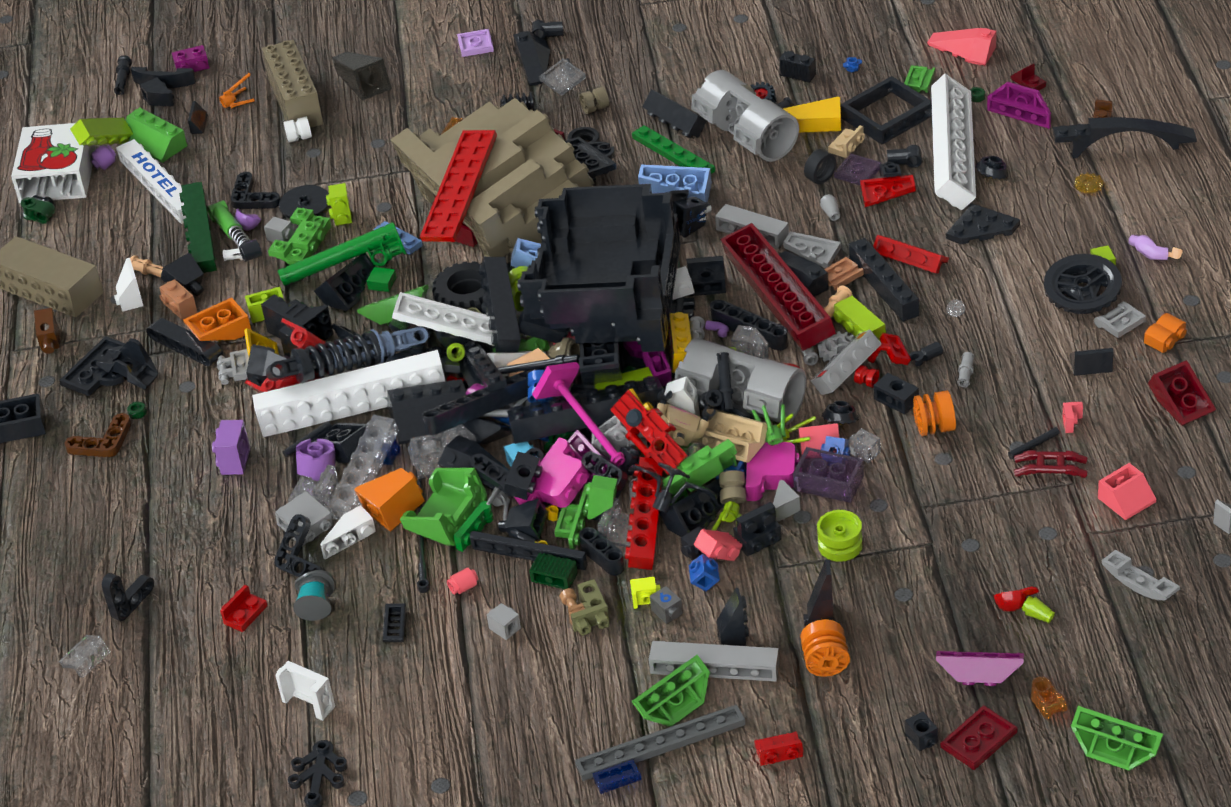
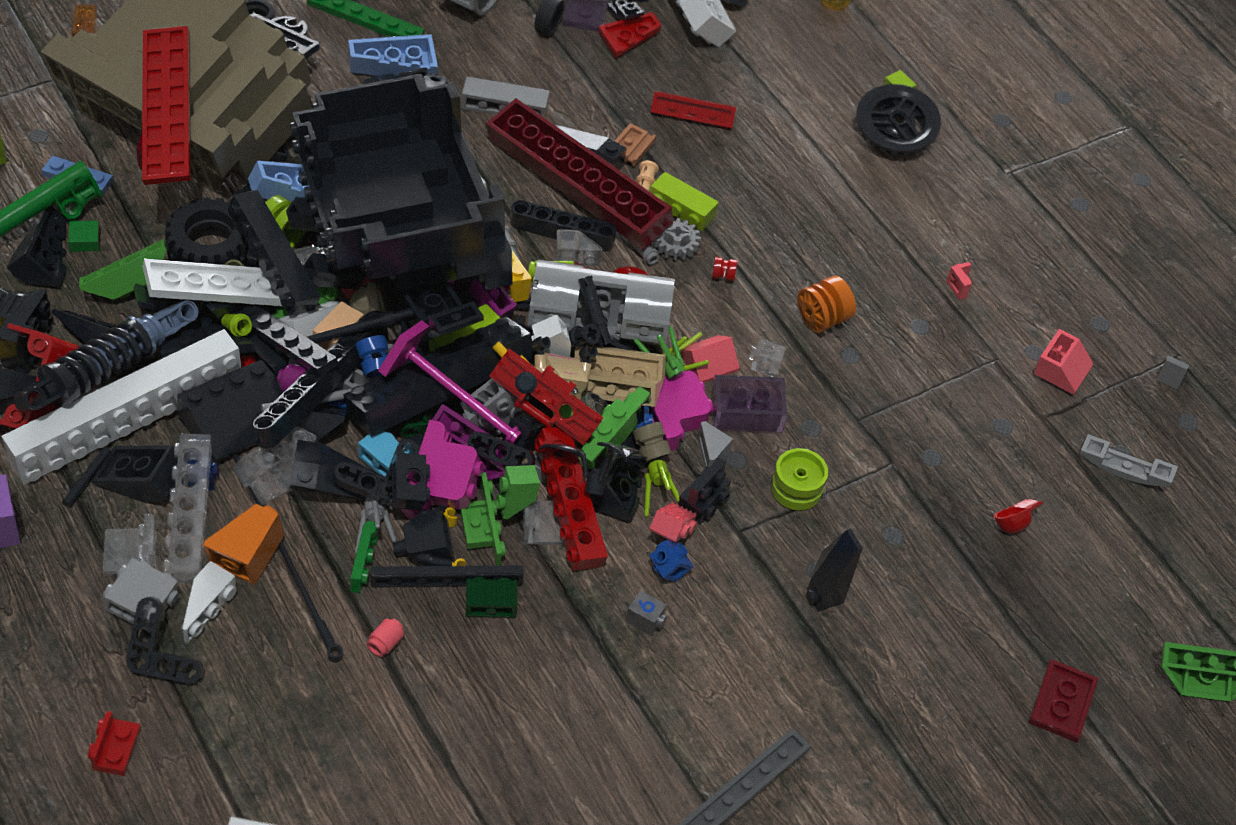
camera: 35 degrees left, 10 degrees up
(314, 457) = (119, 506): medium lavender brick -> none
(314, 595) = (207, 705): dark grey hat -> none
(394, 609) = (319, 696): black slope -> none
(453, 500) = (320, 537): bright green windscreen -> none
(503, 621) = (462, 681): light grey brick -> none
(589, 612) = (561, 641): olive hips -> none
(602, 551) = (547, 559): black beam -> none
(642, 589) = (612, 601): neon yellow brick -> none
(675, 694) = (716, 731): bright green wedge -> none
(687, 542) = (639, 523): black brick -> none
(707, 275) = (494, 167): black brick -> none
(717, 326) = (526, 233): medium lavender arm -> none
(721, 660) = (736, 675): light grey brick -> none
(731, 621) = (743, 622): black slope -> none
(778, 748) = (862, 772): red bracket -> none
(812, 248) = (586, 117): light grey wing -> none
(824, 648) = (858, 630): orange wheel -> none
(830, 207) = (578, 61): light grey cone -> none
(839, 444) = (736, 362): brick -> none
(840, 413) = (719, 321): black piece -> none
(845, 362) = (700, 257): light grey brick -> none
(884, 280) = (686, 145): black brick -> none
(894, 347) = (737, 228): red plate -> none
(895, 393) = (767, 285): black brick -> none
(921, 731) = (1007, 701): black brick -> none
(926, 353) = (773, 228): black bar -> none
(955, 308) = (775, 168): clear plate -> none
(965, 369) = (824, 242): light grey pin -> none
(979, 666) = (1031, 610): wedge -> none
(981, 224) = (750, 62): black plate -> none
(1034, 442) = (935, 319): black bar -> none
(1037, 609) = (1046, 525): lime cone -> none
(1046, 697) = (1111, 634): clear orange piece -> none
(1060, 468) = (960, 348): dark red piece -> none
(1092, 361) = (947, 209): black slope -> none
(1120, 320) = (954, 158): light grey plate -> none
(1148, 248) = (938, 67): lavender arm -> none
(1165, 332) = (1002, 164): orange brick -> none
(1181, 393) = (1055, 233): dark red slope -> none

